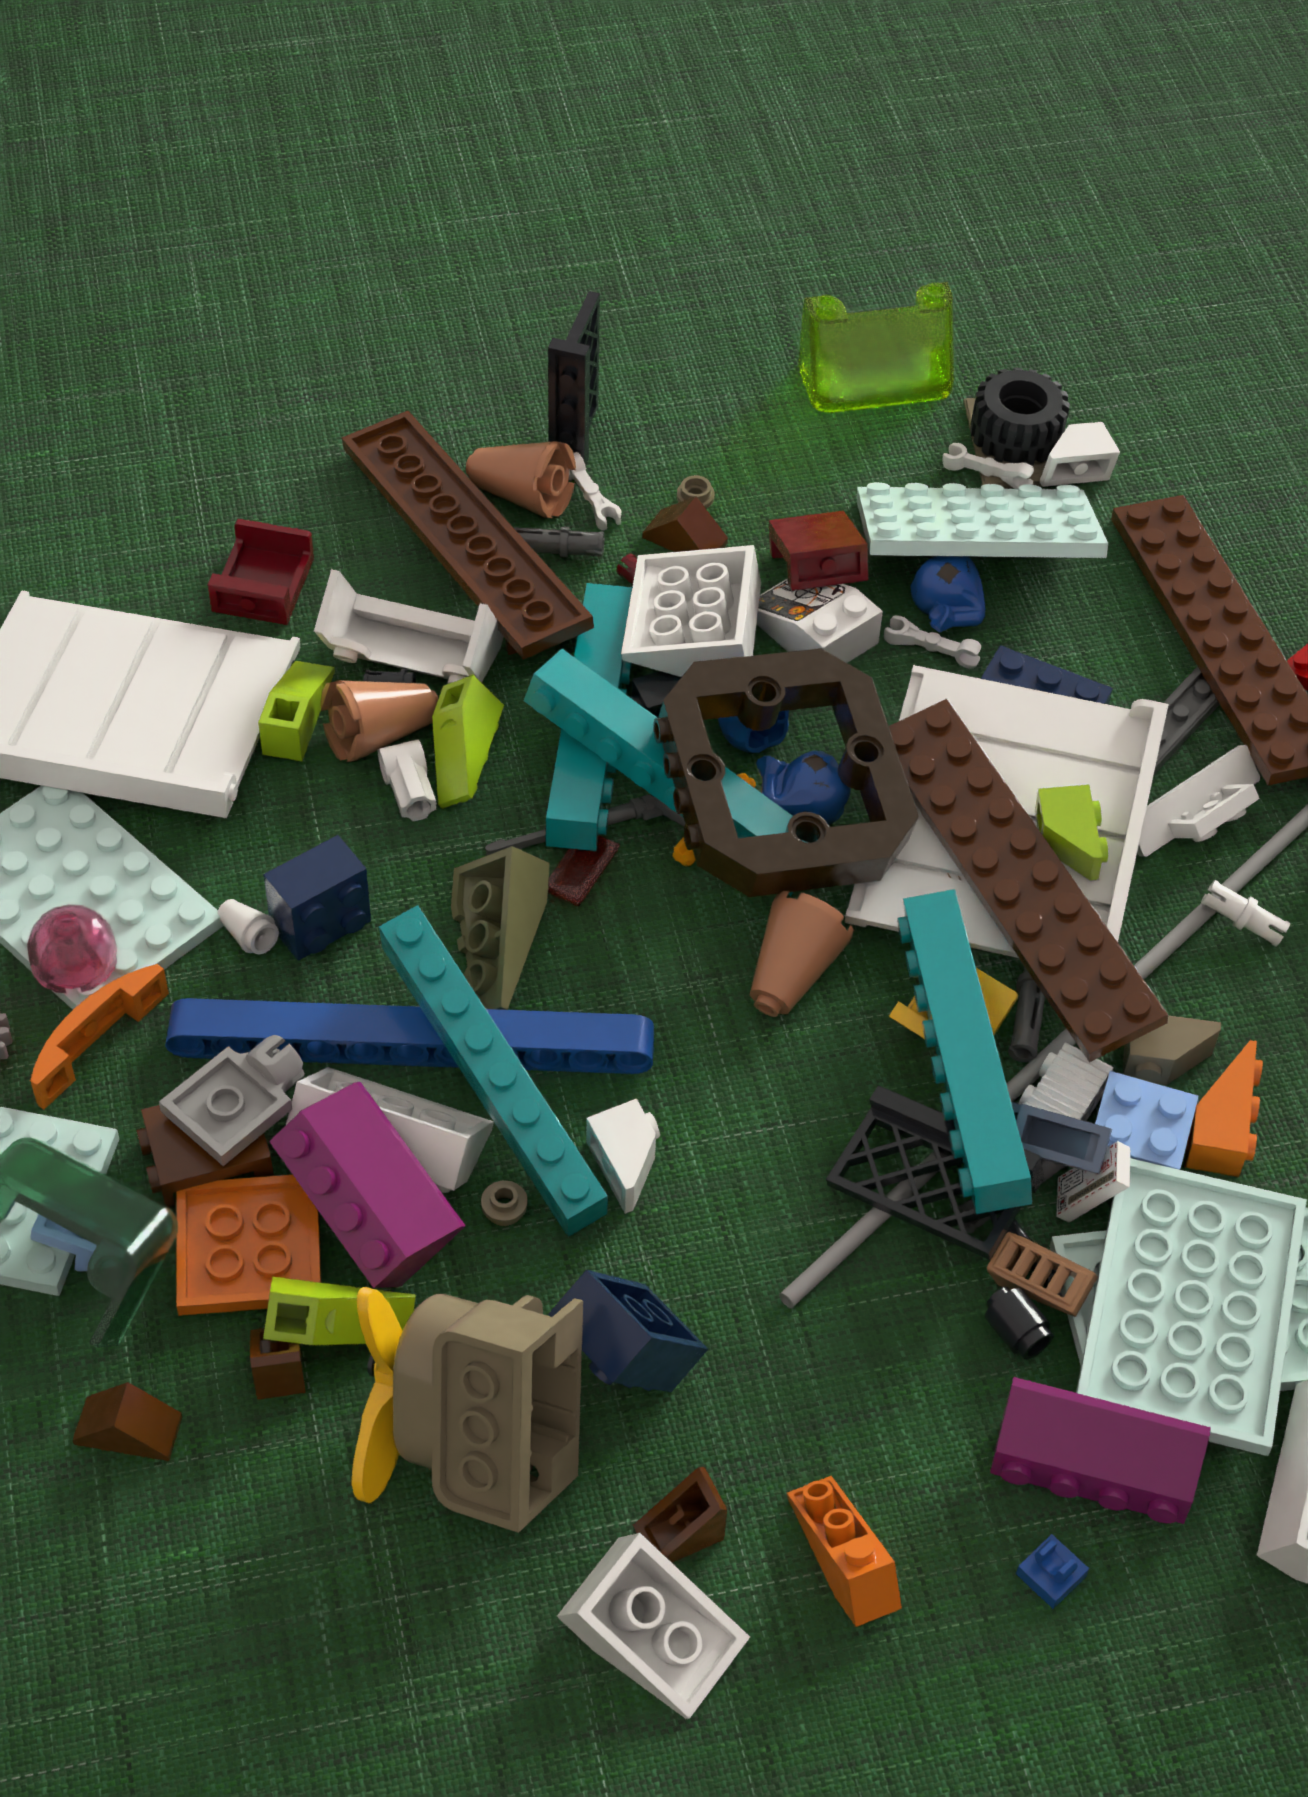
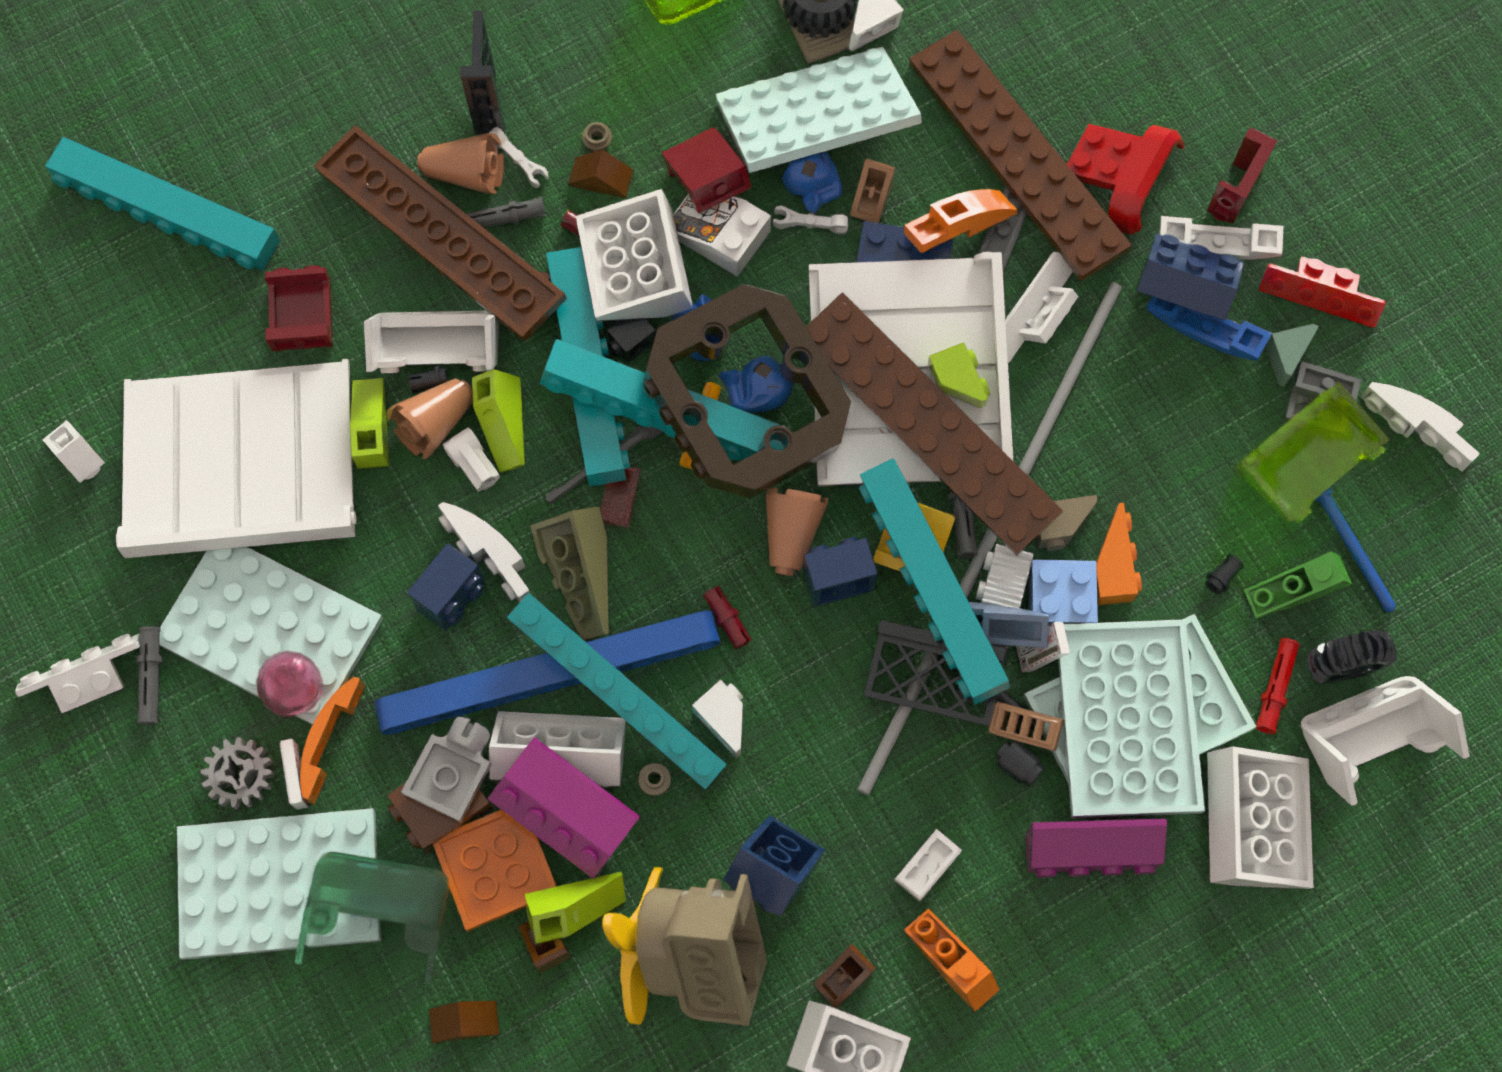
camera: 15 degrees left, 20 degrees up
(35, 1036) = (292, 765): none -> white tile
(149, 432) = (162, 204): none -> teal brick
(248, 926) = (403, 619): white cone -> none
(387, 864) = (483, 541): none -> white slope
(672, 1039) = (727, 617): none -> dark red pin
(840, 1018) = (839, 571): none -> dark blue brick
(848, 1416) = (928, 865): none -> white plate
(1011, 473) = (832, 49): white piece -> none
(1026, 621) = (872, 191): none -> medium nougat slope
(1052, 1571) = (1085, 930): blue tile -> none
(1135, 663) = (959, 214): none -> orange slope
(1245, 913) = (1090, 393): white pin -> none

